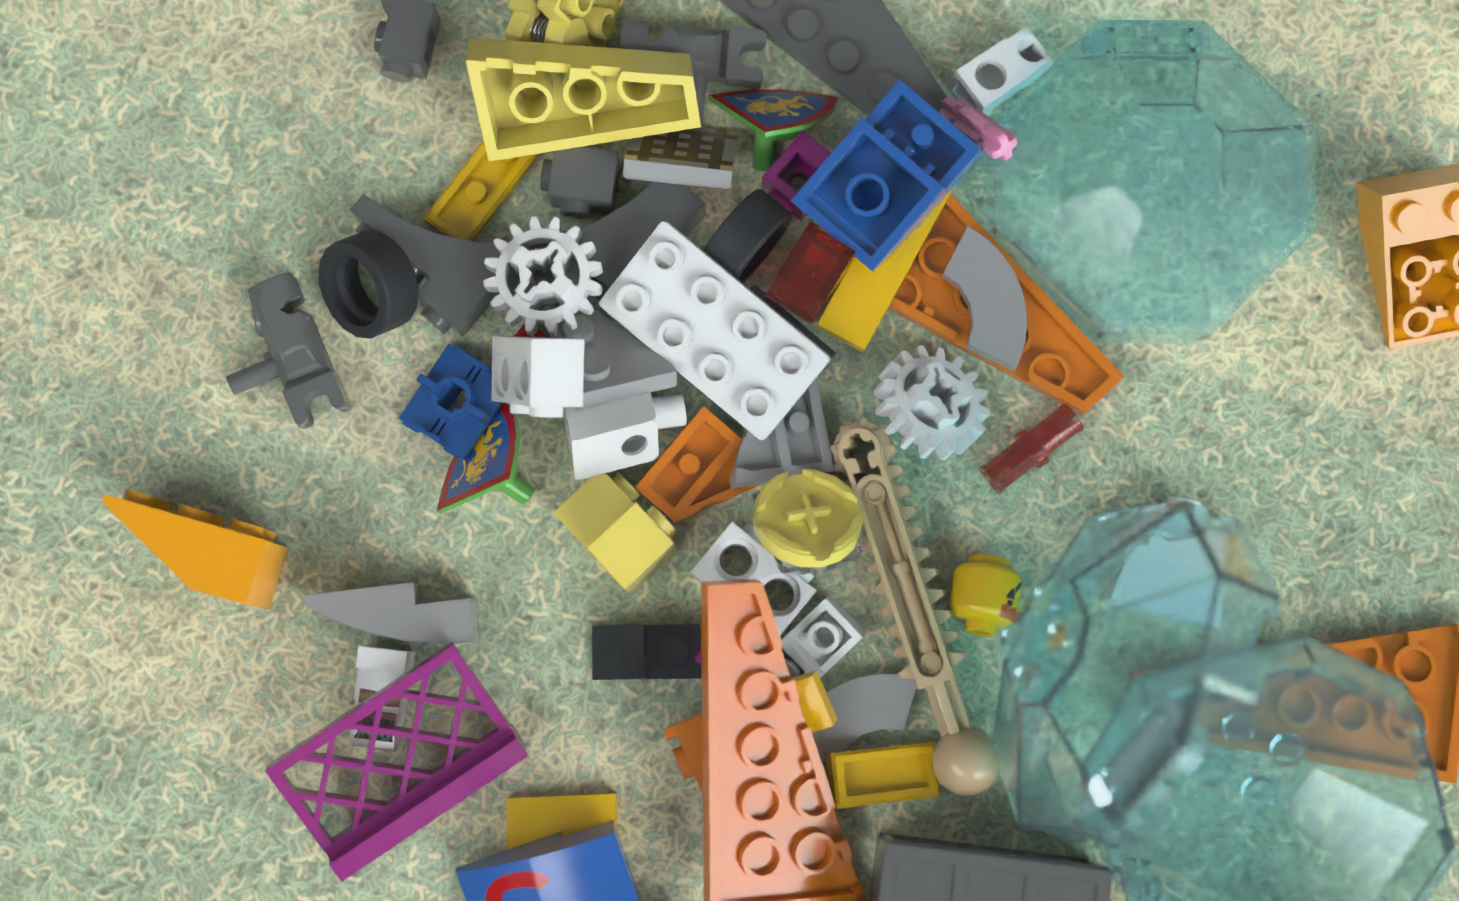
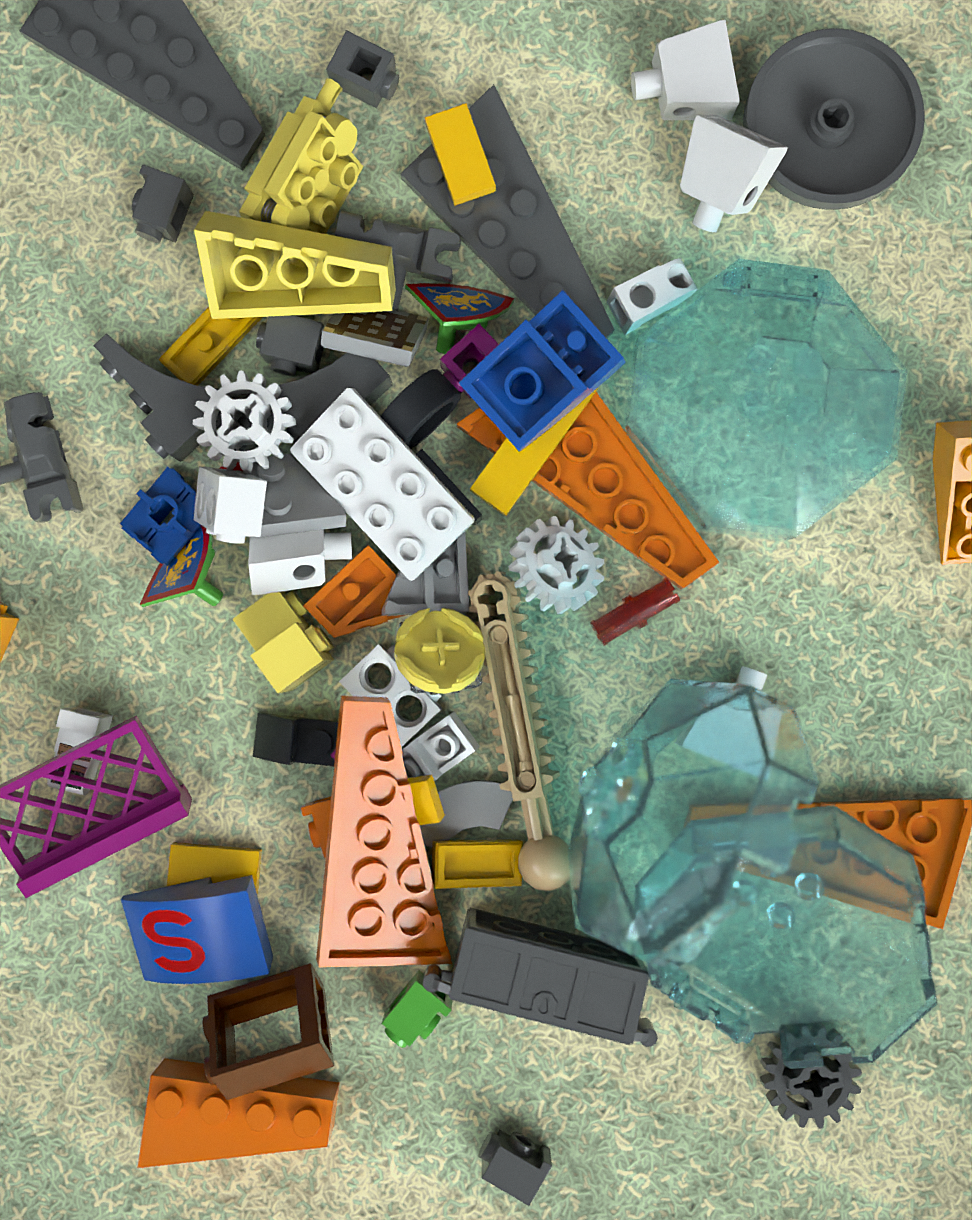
camera: 10 degrees right, 5 degrees up
(345, 295) = (102, 410): black tyre -> none
(400, 614) = (100, 686): light grey slope -> none
(811, 274) = (468, 447): clear red slope -> none
(980, 128) = (625, 339): bright pink axle -> none
(985, 594) = (580, 728): yellow head -> none
(992, 299) = (618, 484): light grey tile -> none

